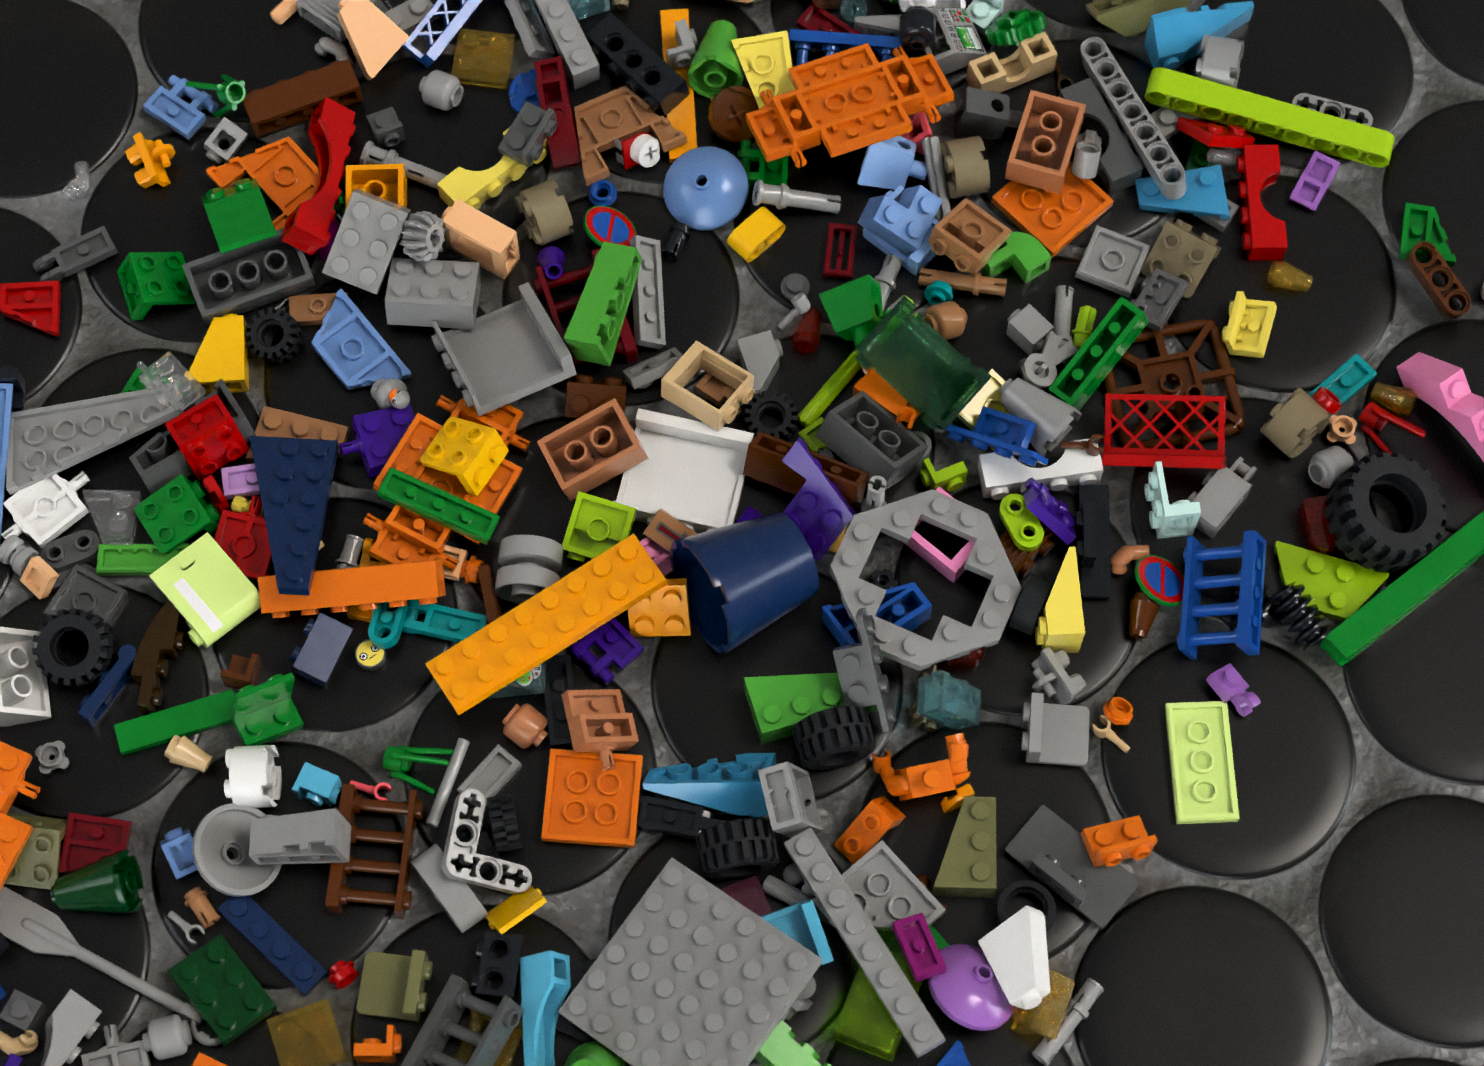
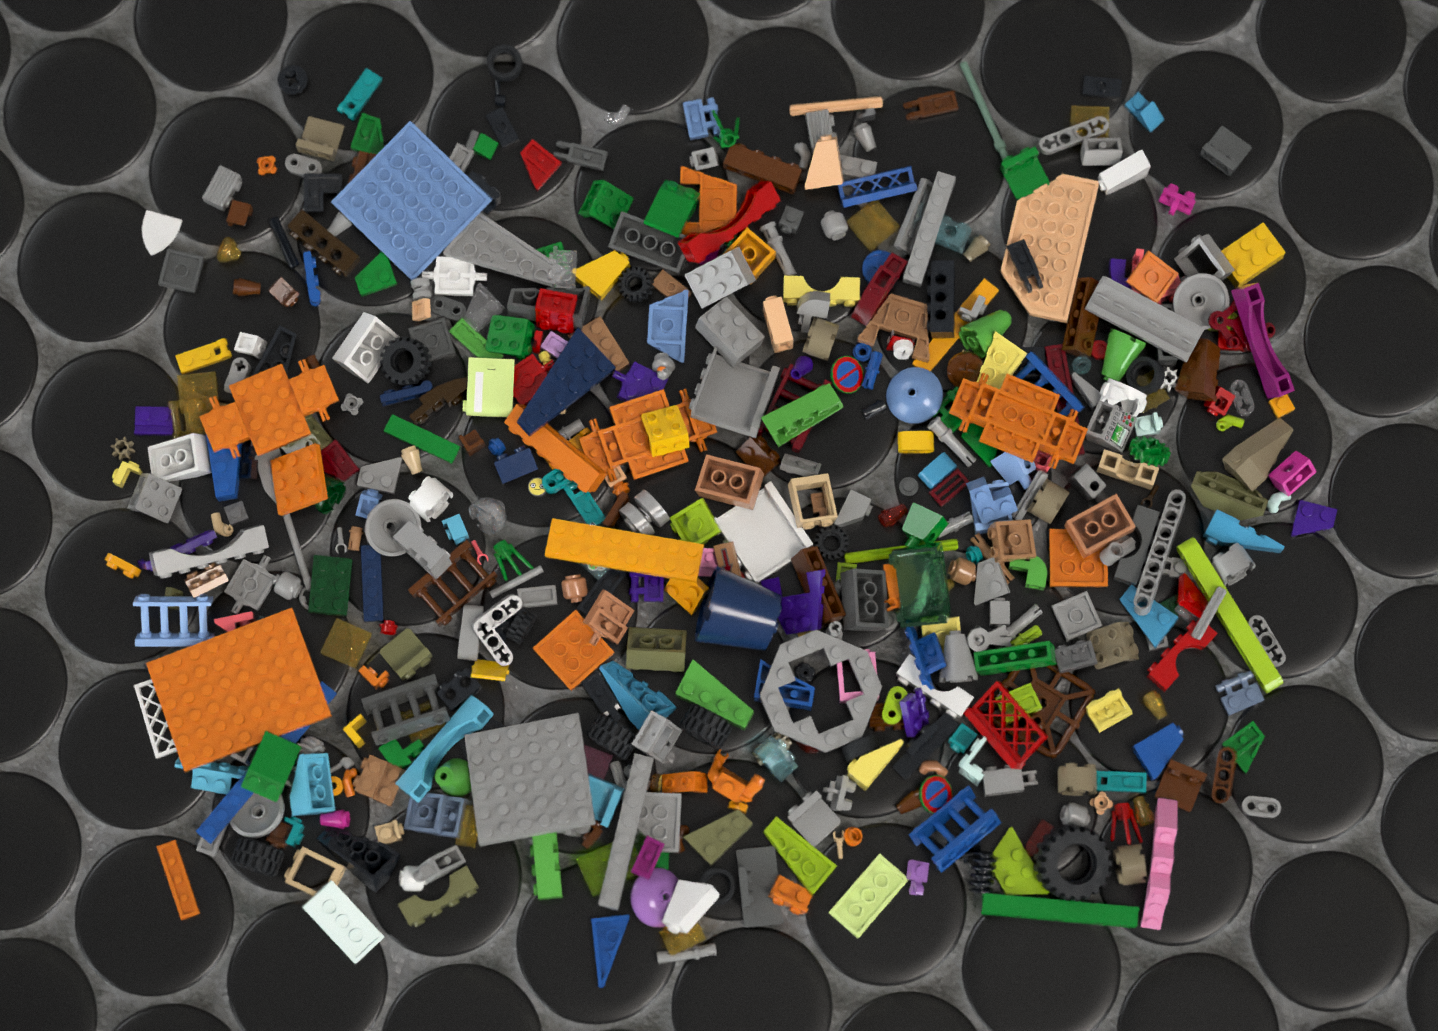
camera: 45 degrees right, 10 degrees up
(66, 895) = (299, 479): none -> orange plate
(155, 157) = (662, 137): light orange hips -> none
(165, 808) = (380, 476): none -> light grey wing
(266, 711) = (463, 473): green bracket -> none
(277, 651) = (496, 446): none -> blue plate
(342, 734) = (489, 514): none -> clear cylinder
(423, 236) = (747, 301): light grey gear -> none
(438, 506) = (629, 445): green tile -> none
(499, 184) = (812, 304): none -> light grey brick
(527, 134) = (850, 290): dark grey bracket -> none
(632, 202) = (872, 370): none -> blue axle
(648, 295) = (834, 424): light grey plate -> none
(689, 709) = (656, 649): none -> olive slope
(801, 306) = (901, 498): light grey hand -> none
(810, 243) = (937, 470): none -> dark azure beam
(825, 175) = (981, 449): none -> green wing
(825, 992) = (591, 837): none -> reddish brown bracket
(838, 858) = (656, 783): none -> clear orange tile
(861, 673) = (744, 709): dark grey bracket -> none
(917, 28) = (1092, 409): black head -> none
(948, 479) = (886, 652): lime bracket -> none
(986, 304) = (989, 581): none -> light grey wing
(1085, 445) = (962, 695): reddish brown hand -> none
(1086, 787) = (804, 860): none -> lime wing
(1127, 496) = (962, 739): none -> teal bracket
(1151, 383) = (1025, 697): none -> lime plate
(1251, 128) = (1208, 613): none -> light grey axle
(1315, 181) = (1221, 667): medium lavender slope -> none
(1327, 400) = (1103, 783): red tile -> none
(1343, 320) = (1158, 749): none -> blue slope
(1369, 193) = (1240, 699): none -> sand blue plate
(1401, 331) = (1180, 784): none -> reddish brown bracket
(1448, 458) = (1130, 864): none -> dark tan brick

